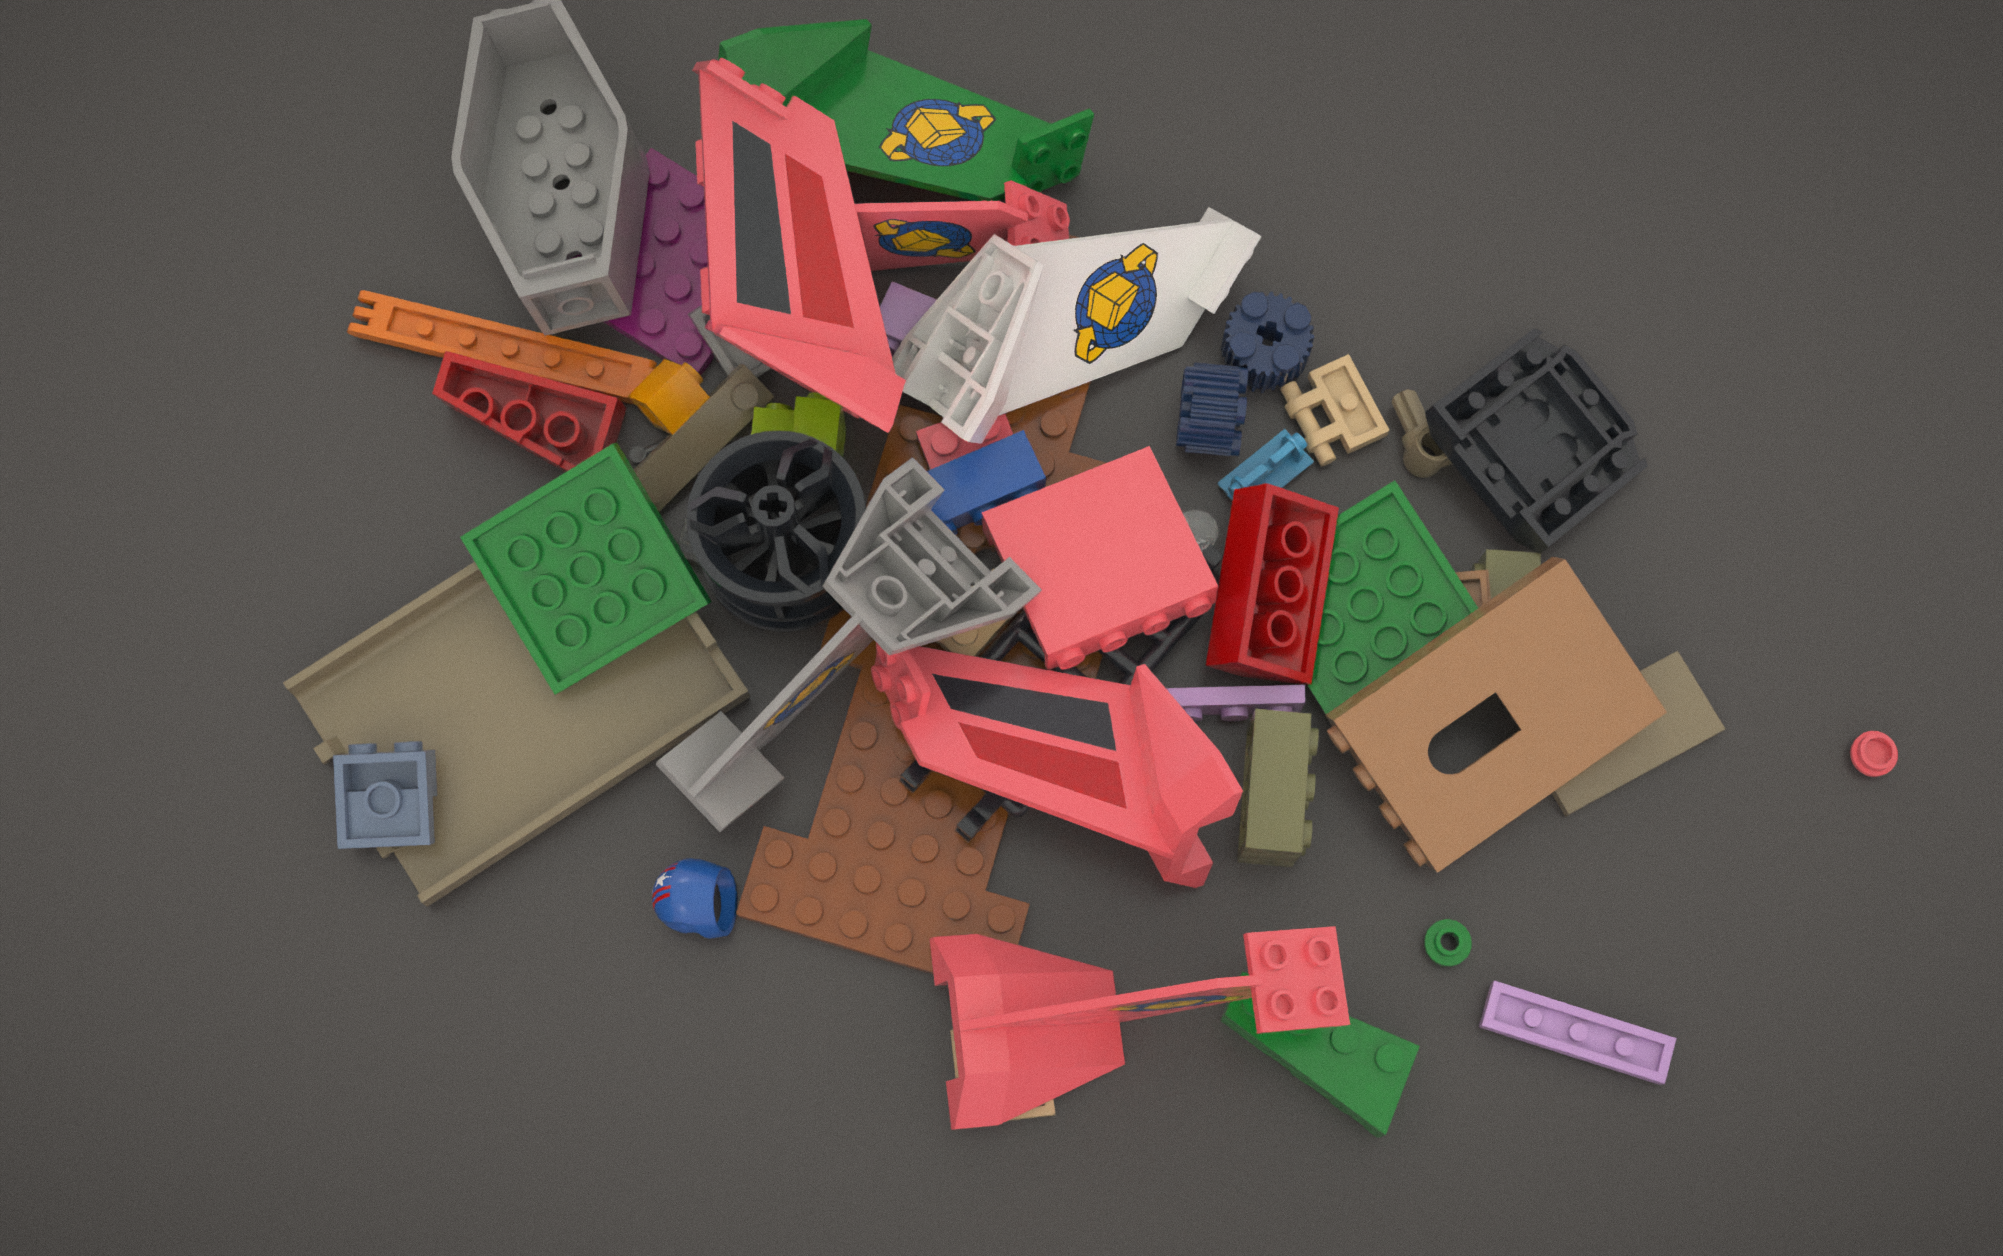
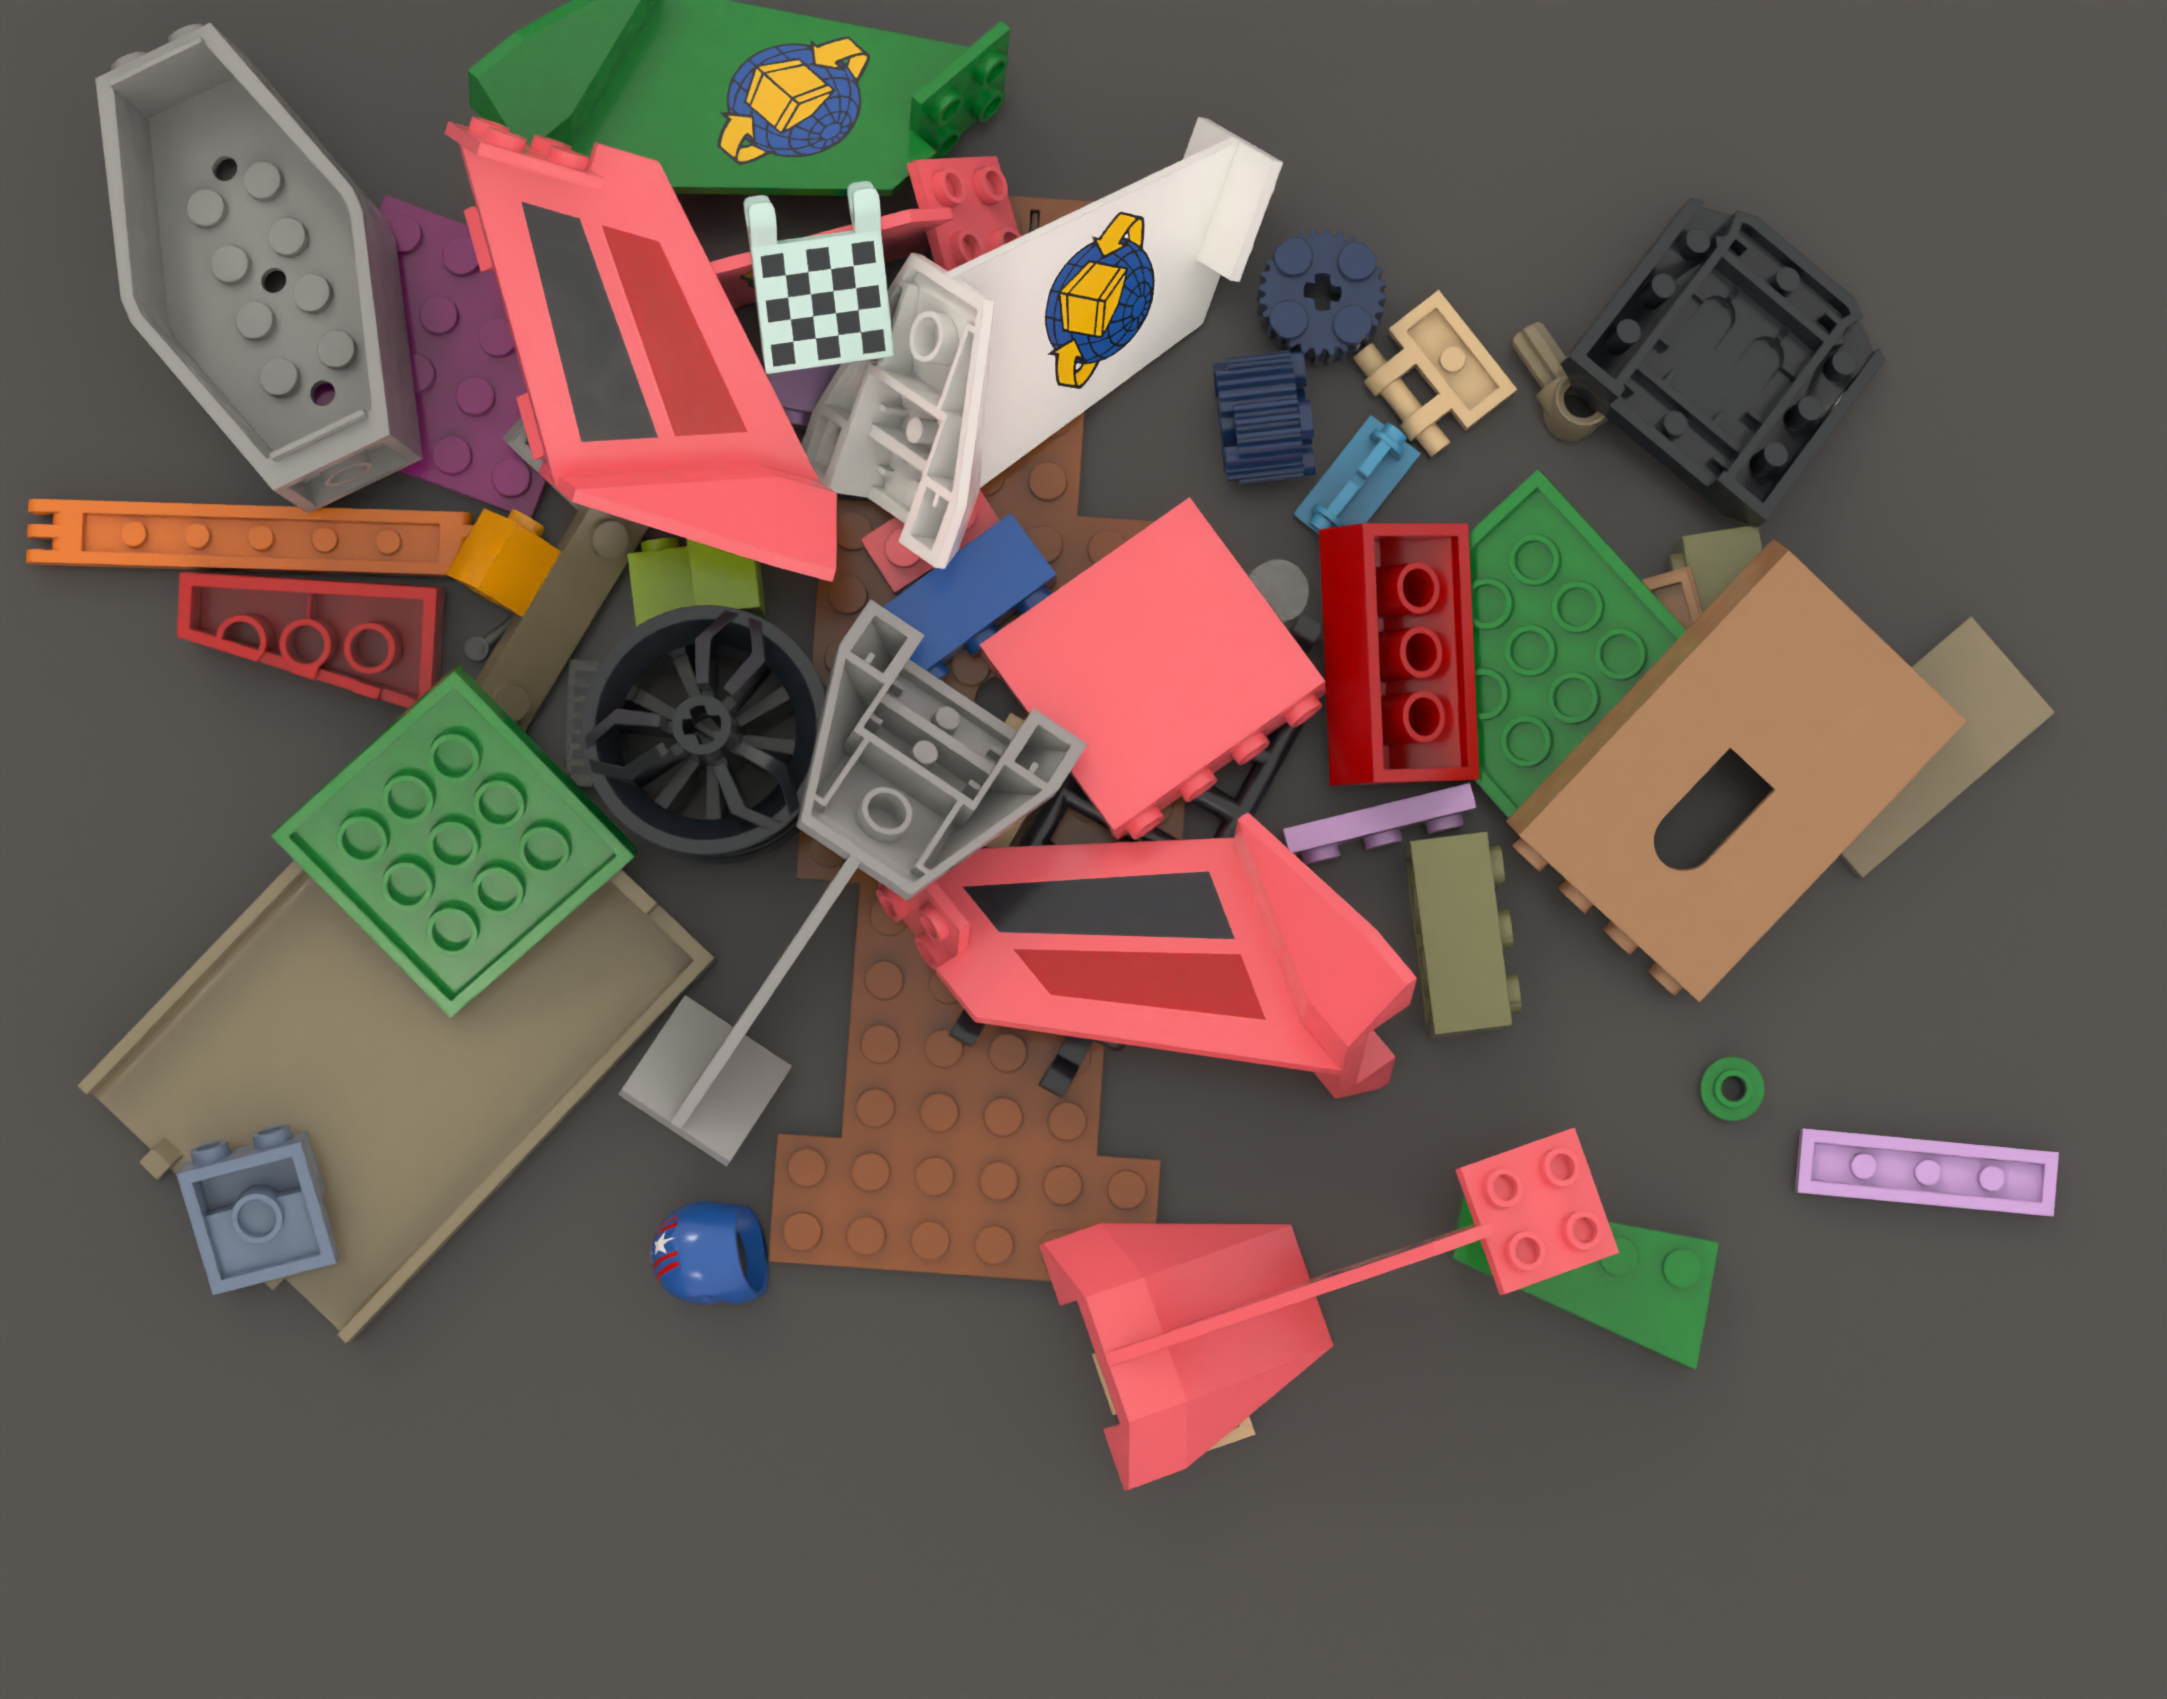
camera: 10 degrees left, 10 degrees up
(926, 244) = (820, 294): none -> light aqua flag

